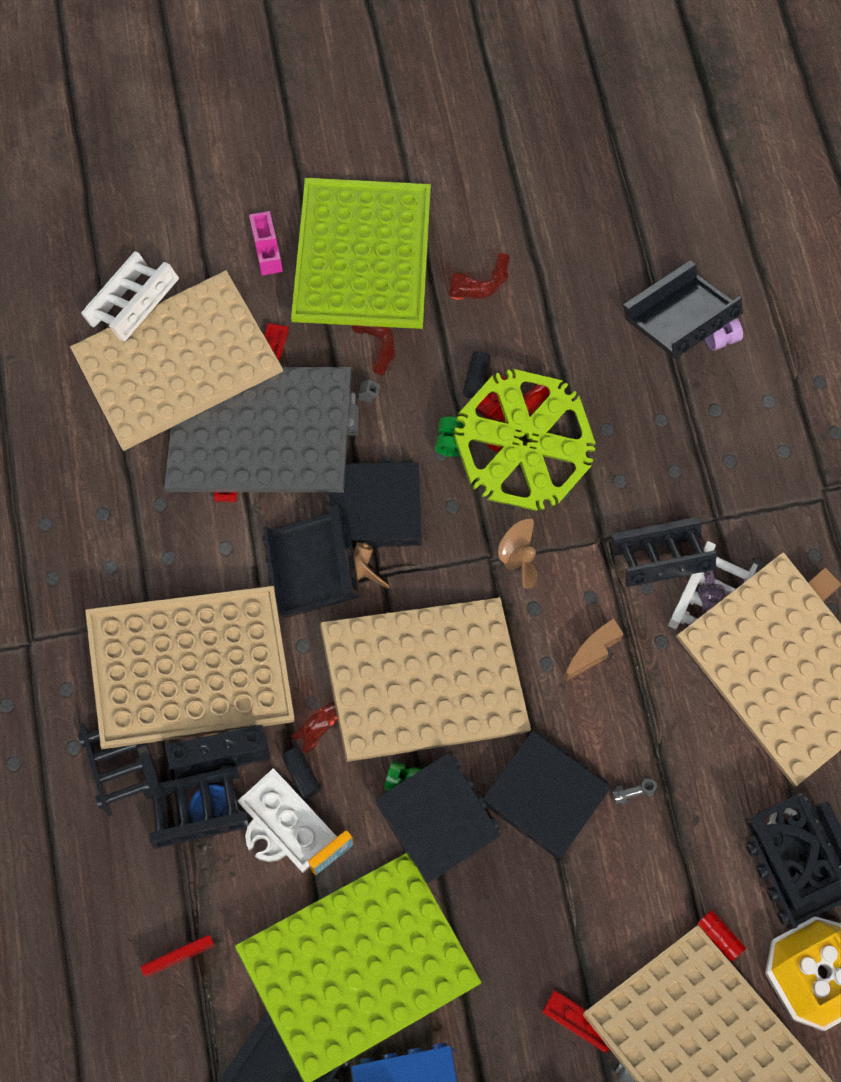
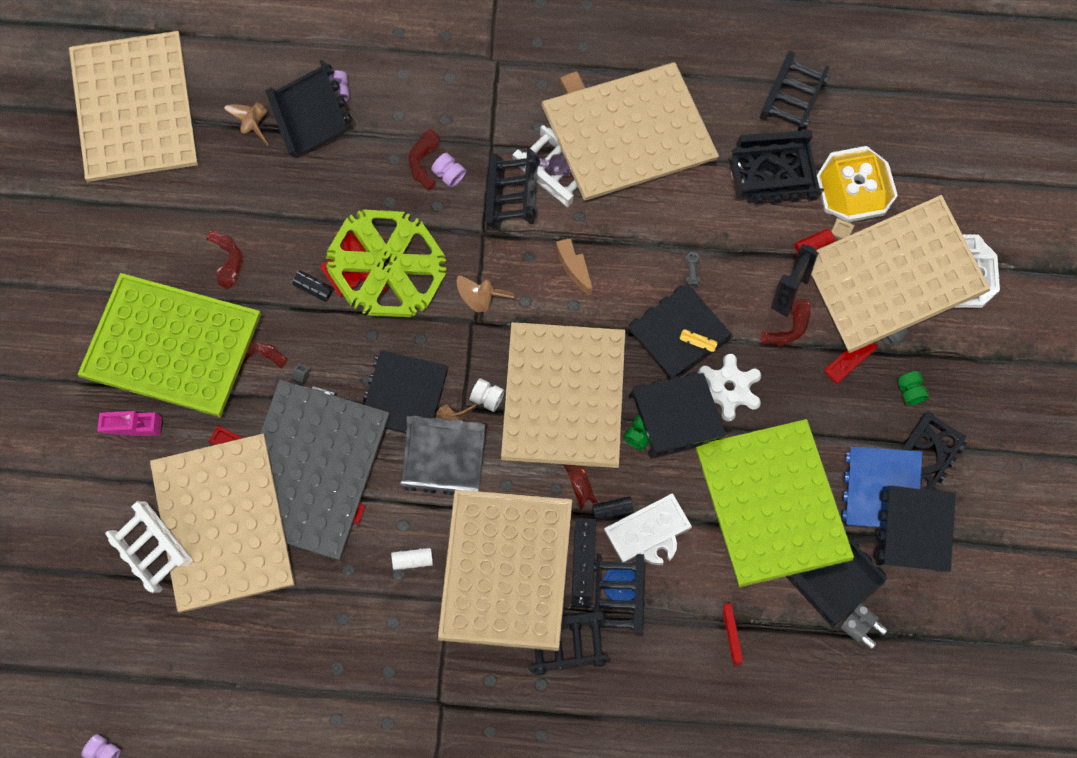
camera: 75 degrees left, 0 degrees up
(184, 564) = (411, 558): none -> white axle
(331, 852) = (684, 498): light orange tile -> none
(401, 589) = (487, 395): none -> white wheel
(445, 441) = (356, 319): green wheel -> none
(508, 889) = (741, 380): none -> white plate
(538, 818) = (698, 340): none -> yellow axle
(620, 941) = (801, 313): none -> clear red piece
(626, 143) = (132, 106): none -> tan plate
(634, 910) = (789, 285): none -> black fence
(656, 256) = (249, 116): none -> medium nougat piece
(664, 478) = (448, 169): none -> lavender wheel
(689, 446) = (427, 143): none -> clear red piece
(752, 968) = (842, 229): none -> tan tile

